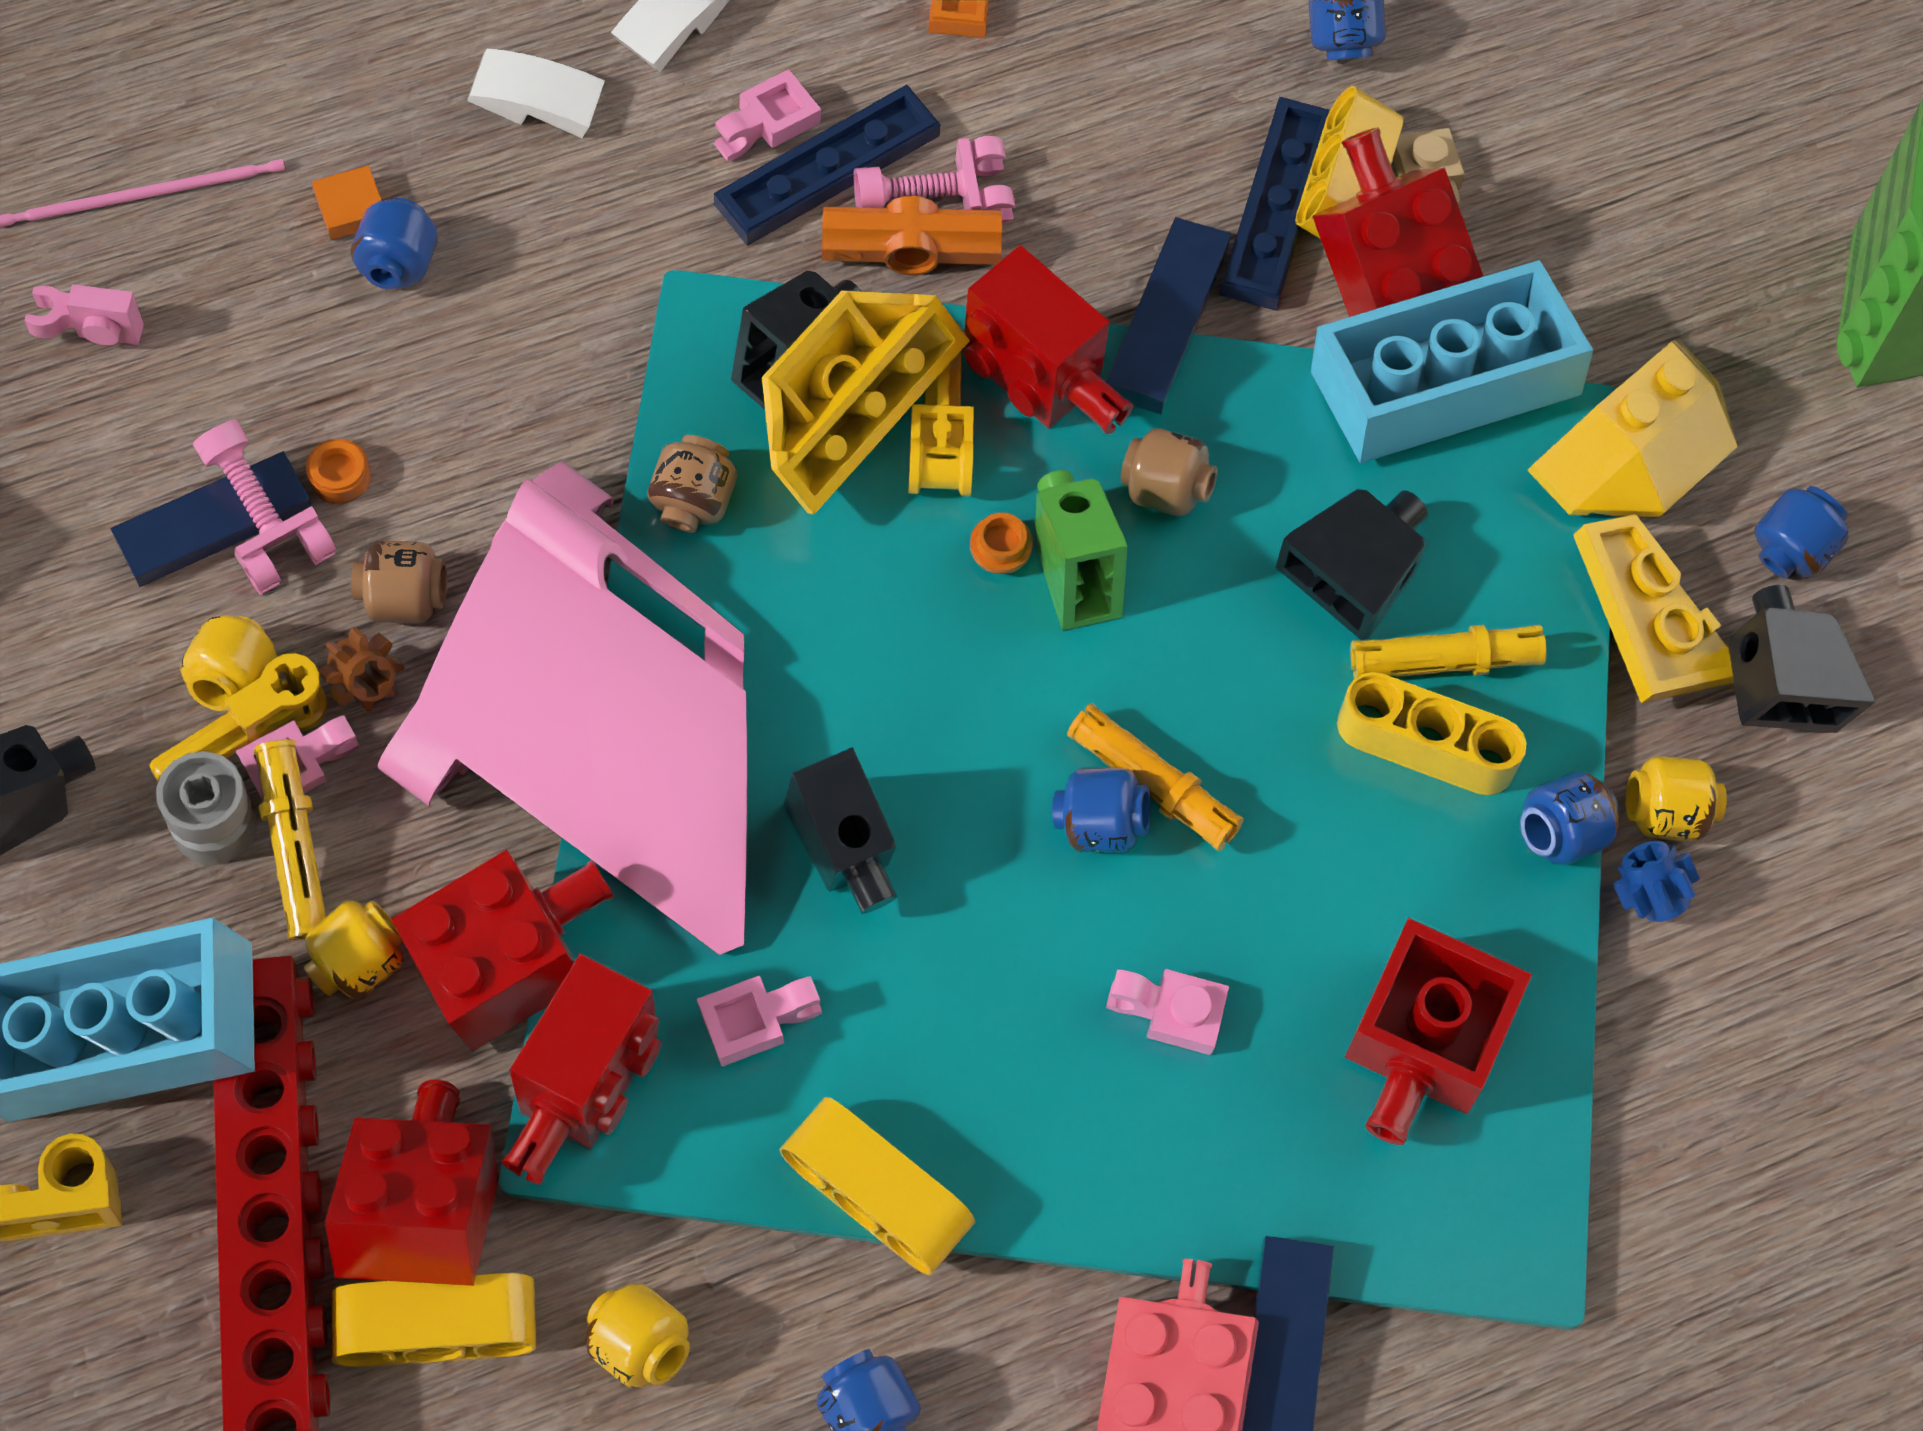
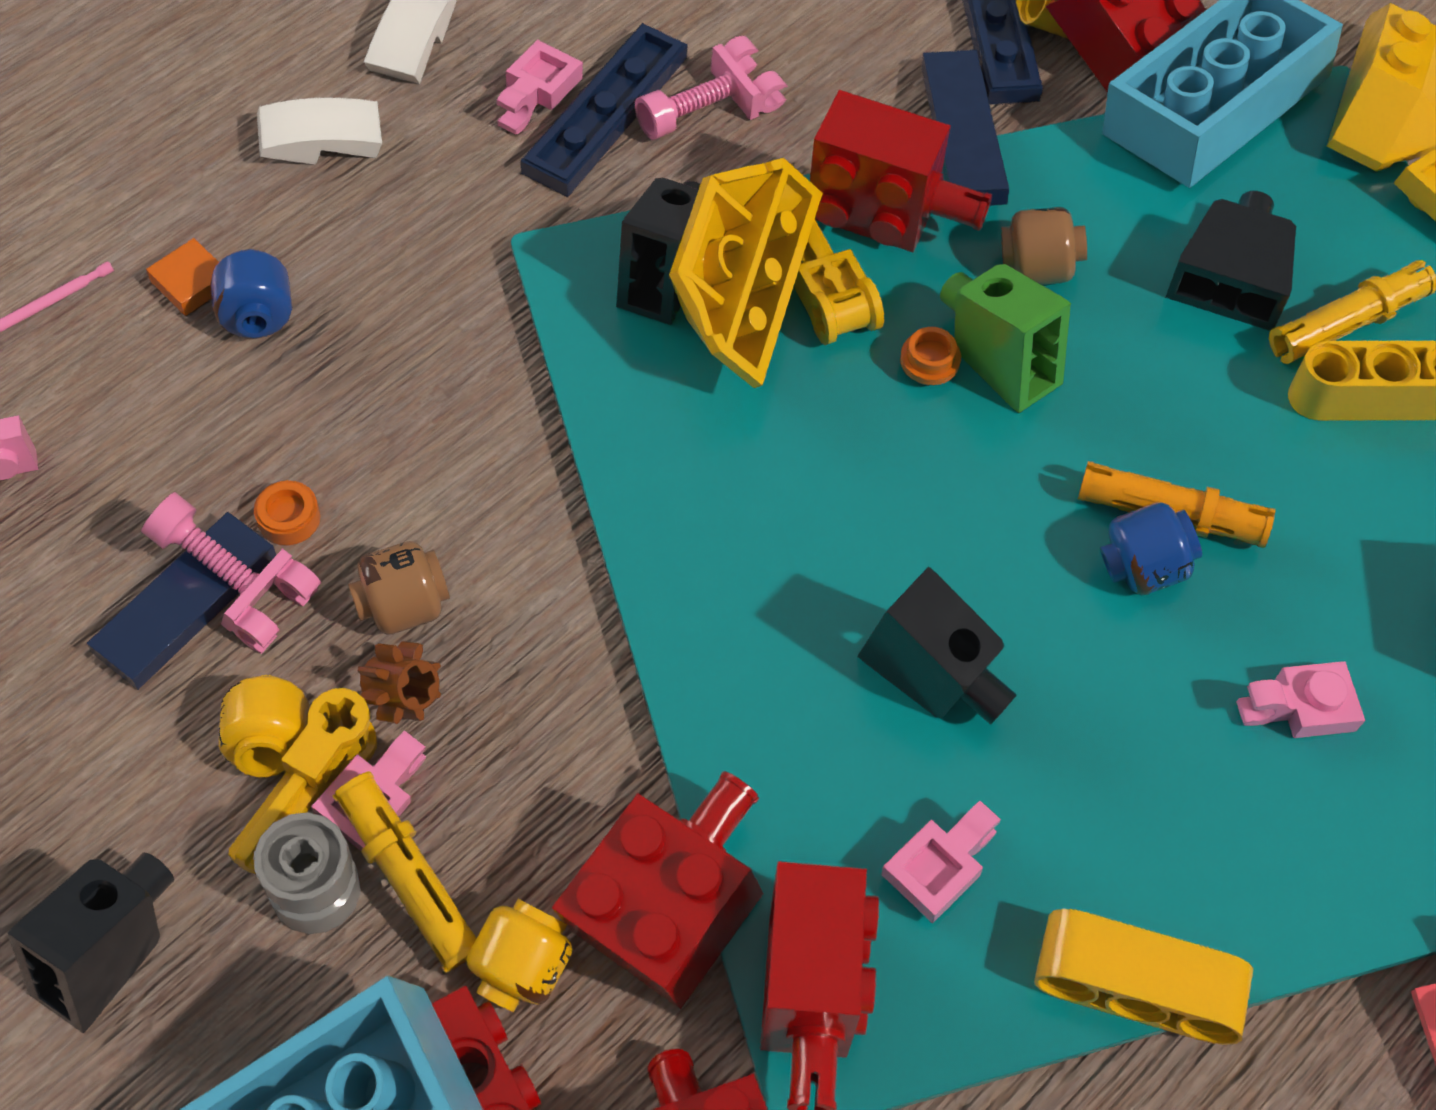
camera: 20 degrees left, 5 degrees down
(593, 710) = (652, 638): bright pink panel -> none
(692, 483) = (634, 400): medium nougat head -> none
(911, 235) = (711, 137): orange piece -> none

